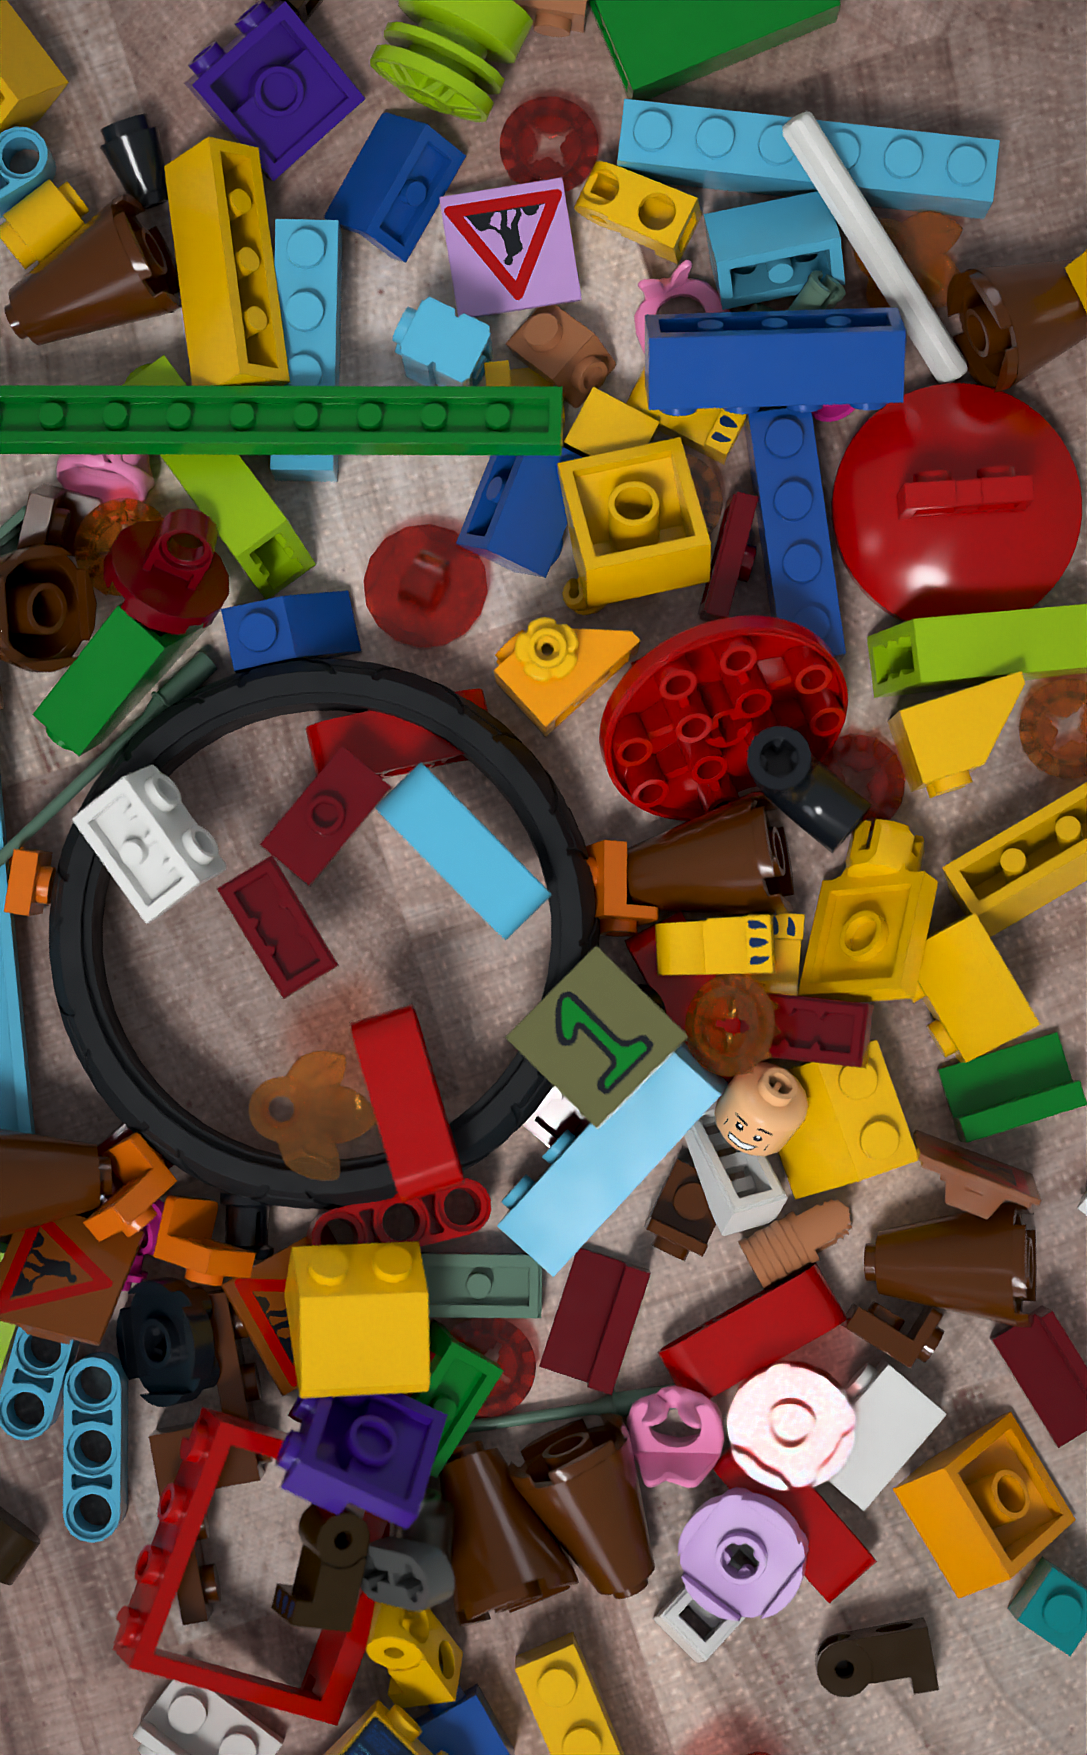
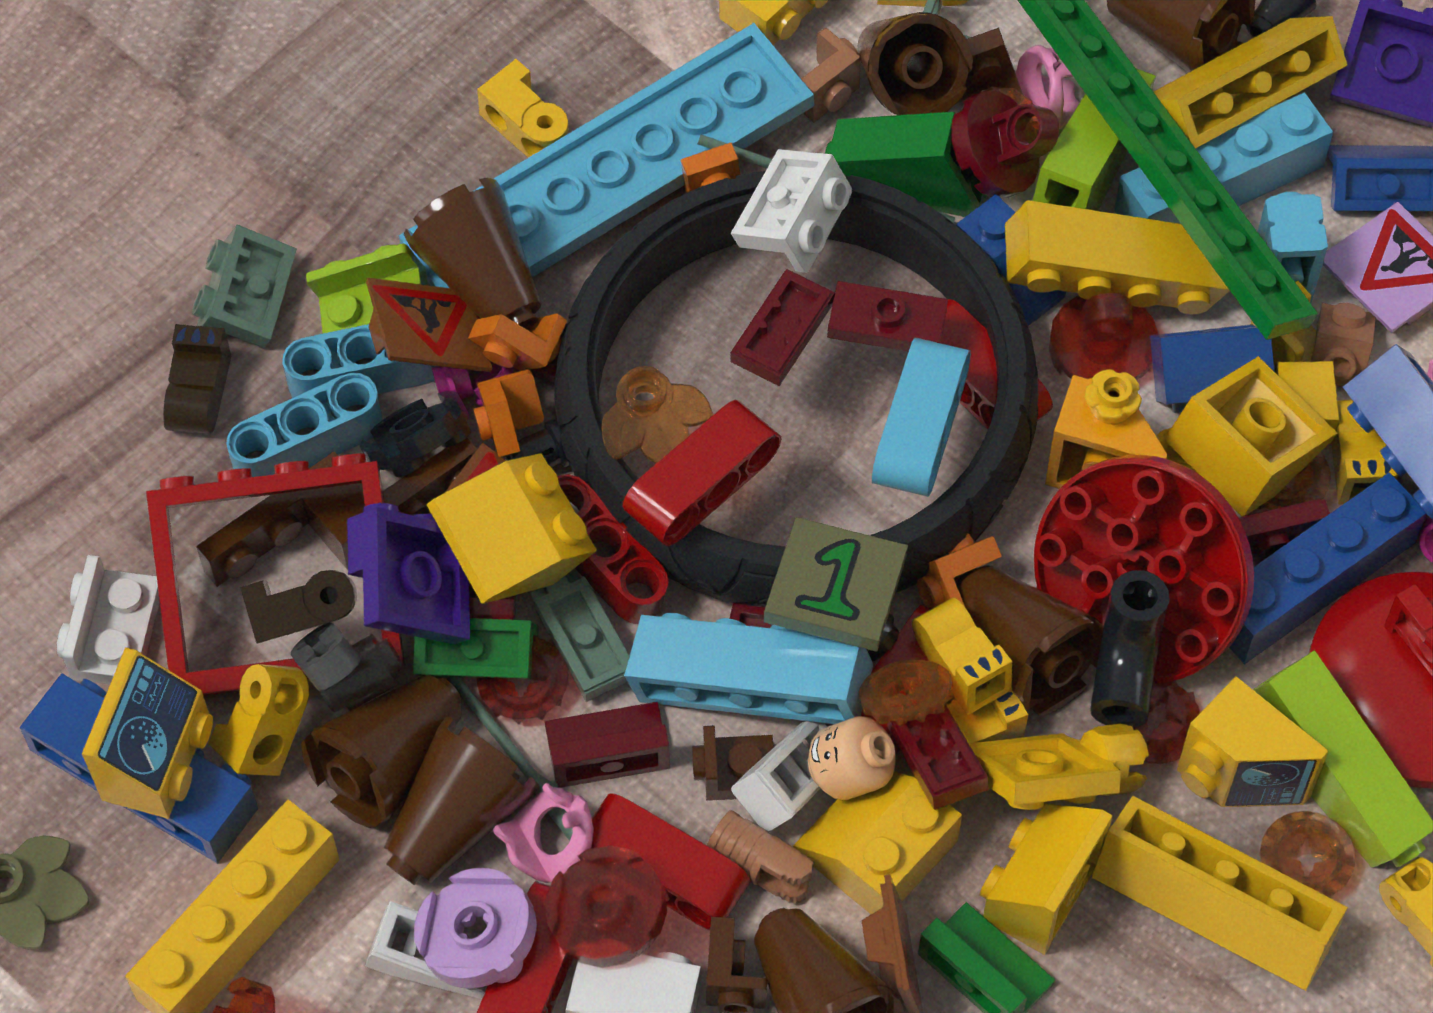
camera: 60 degrees right, 25 degrees down
(355, 549) = (1109, 253): none -> yellow brick

